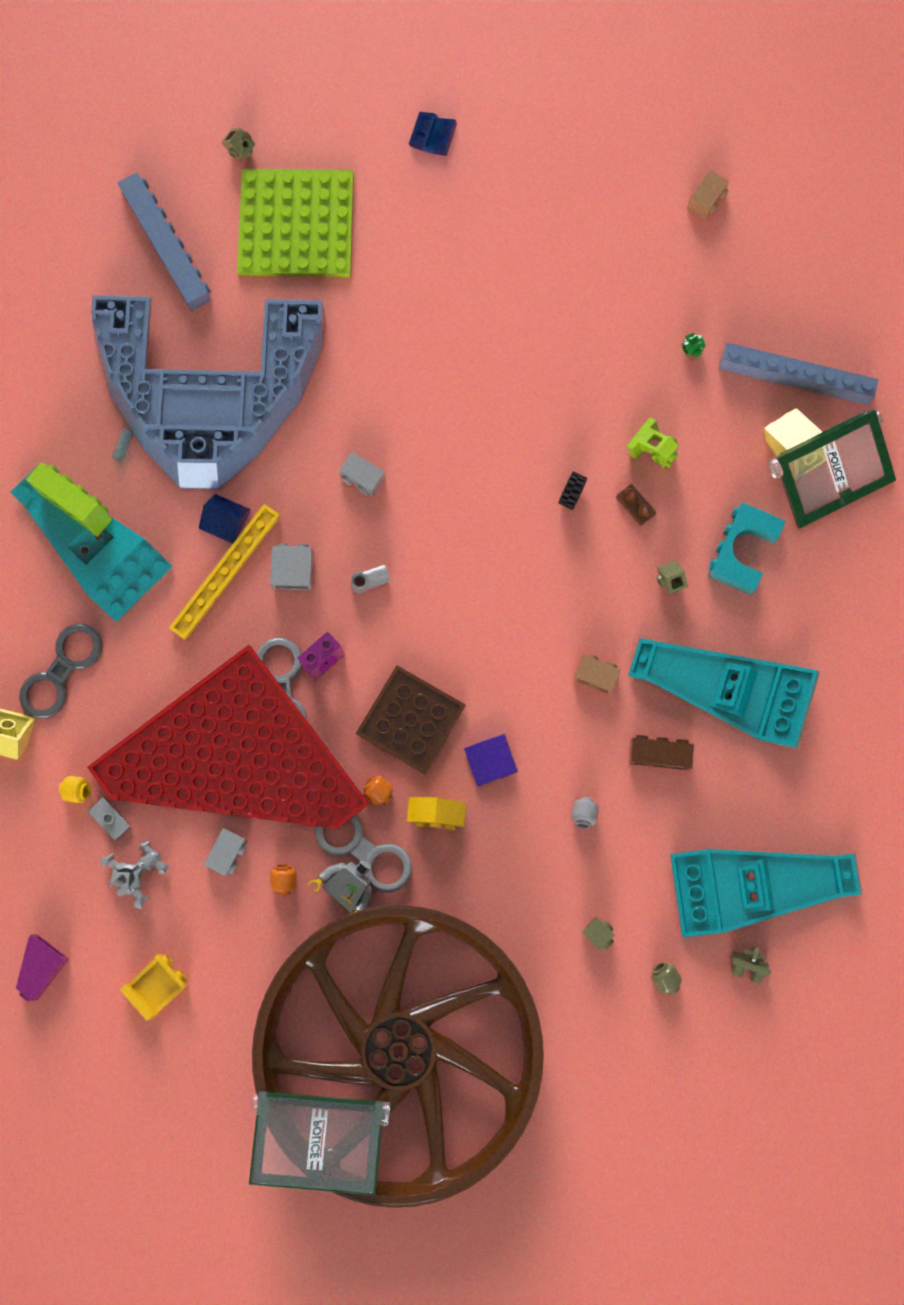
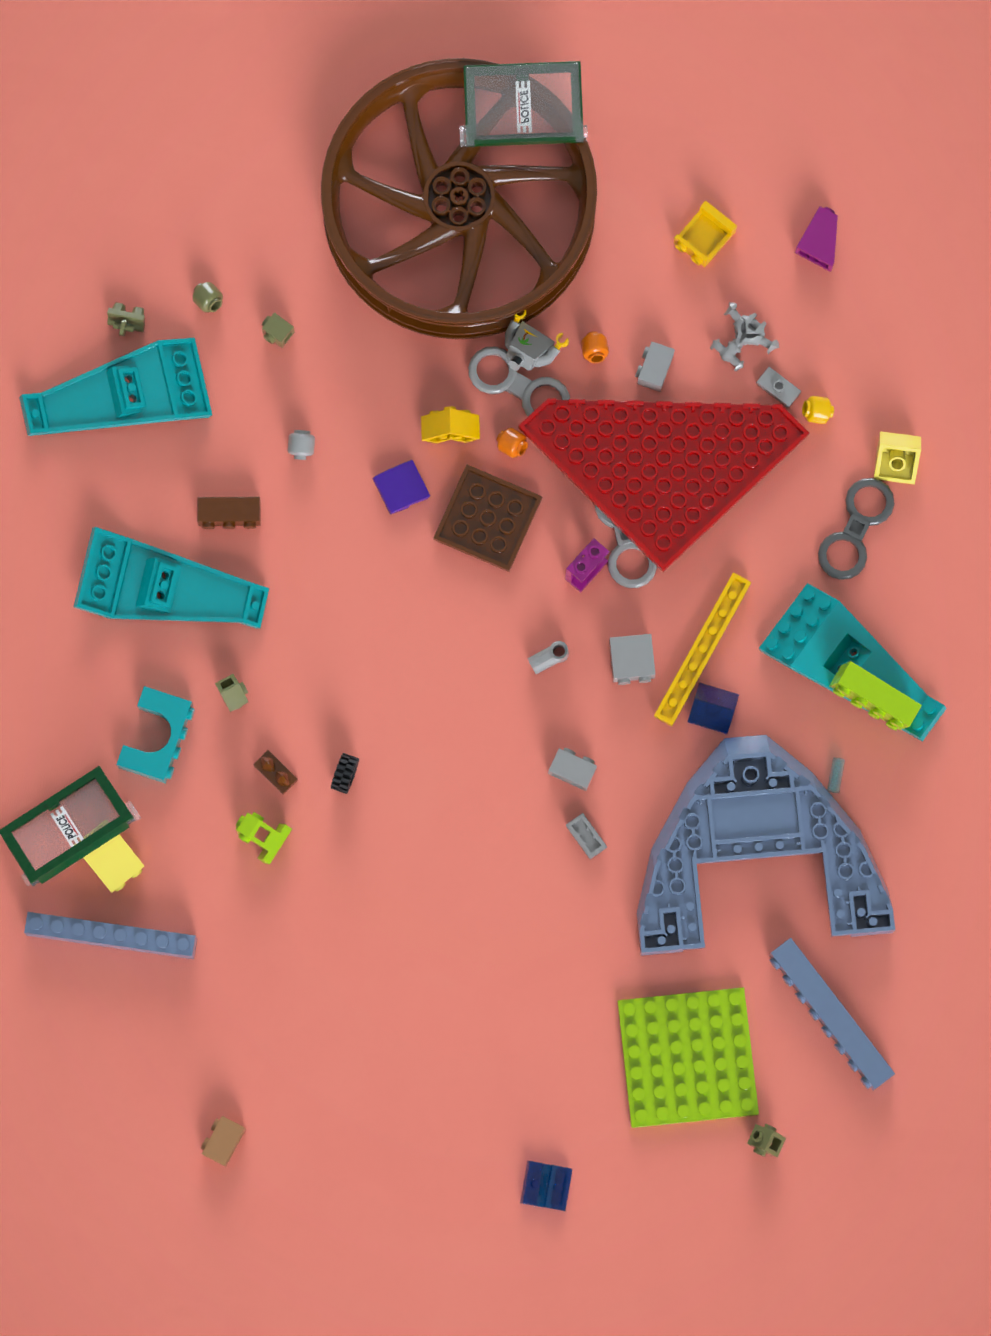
camera: 170 degrees right, 0 degrees up
(358, 415) = (586, 836): none -> light grey plate
(597, 674) = (301, 584): medium nougat brick -> none
(693, 345) = (227, 956): green gear -> none

